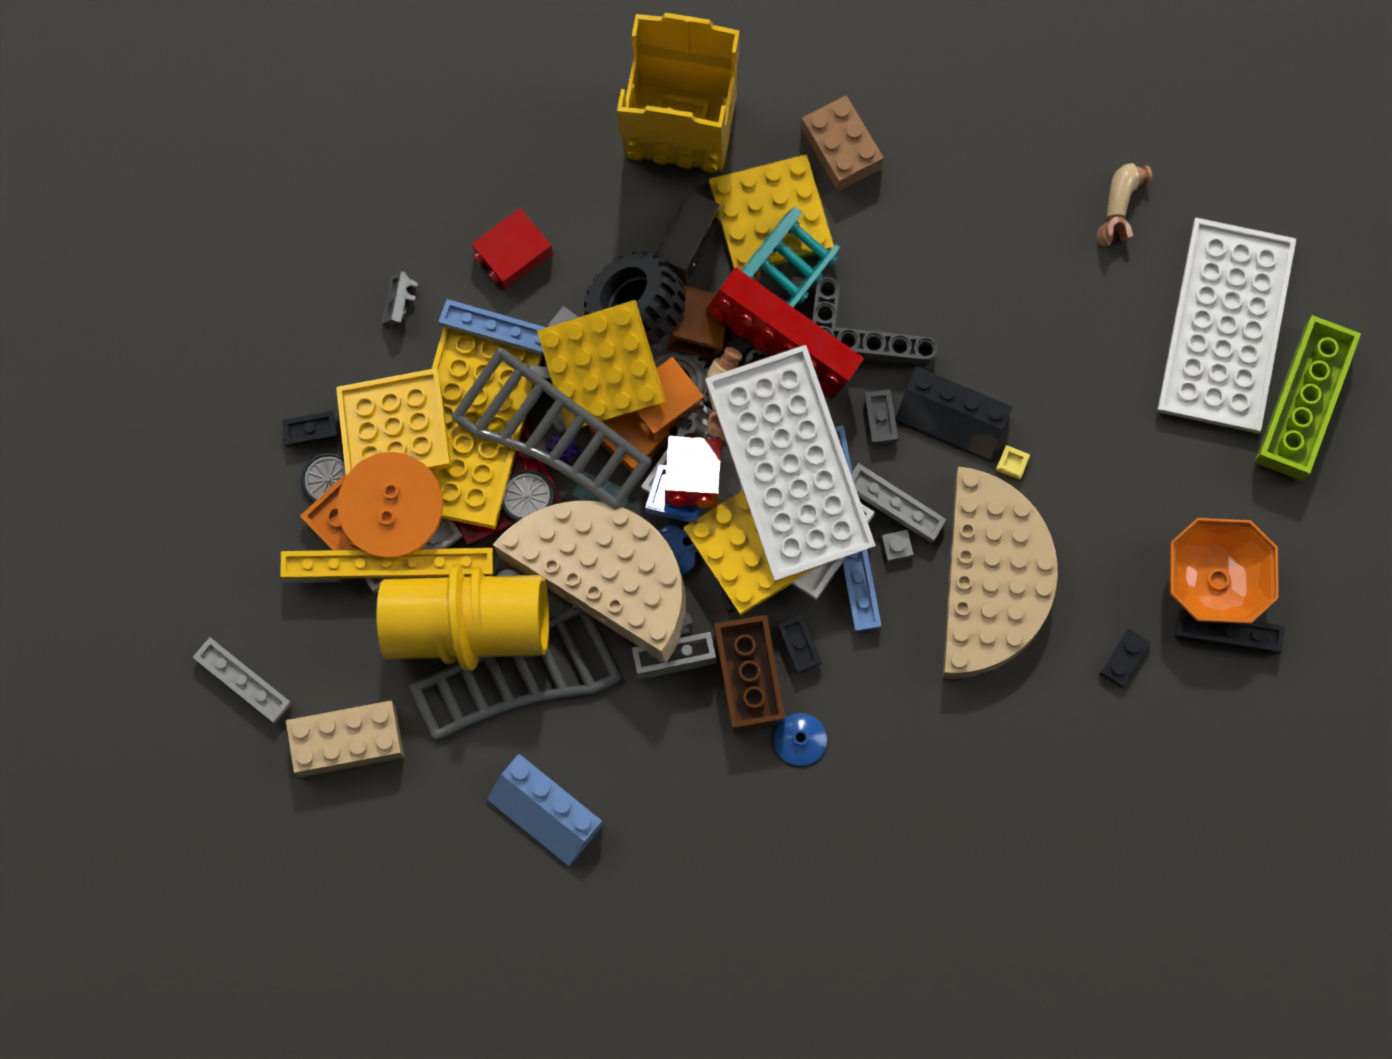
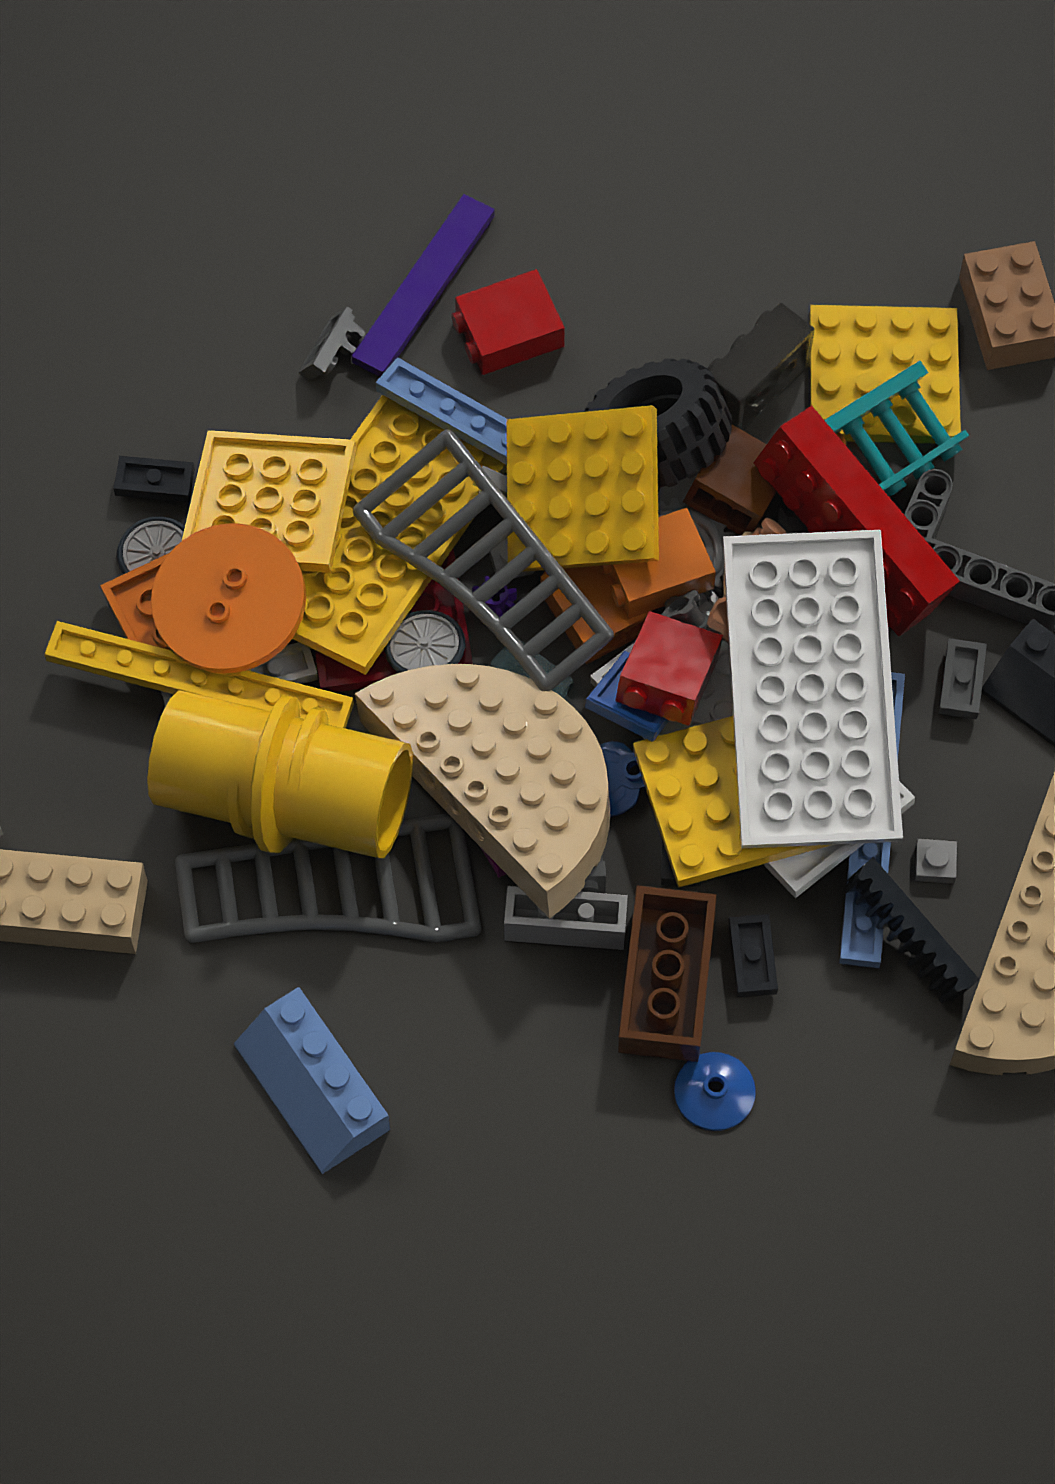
camera: 15 degrees right, 10 degrees down
(446, 237) = (423, 285): none -> dark purple tile
(680, 92) = (803, 164): yellow piece -> none
(896, 503) = (951, 800): light grey plate -> none
(896, 600) = (912, 930): none -> black gear

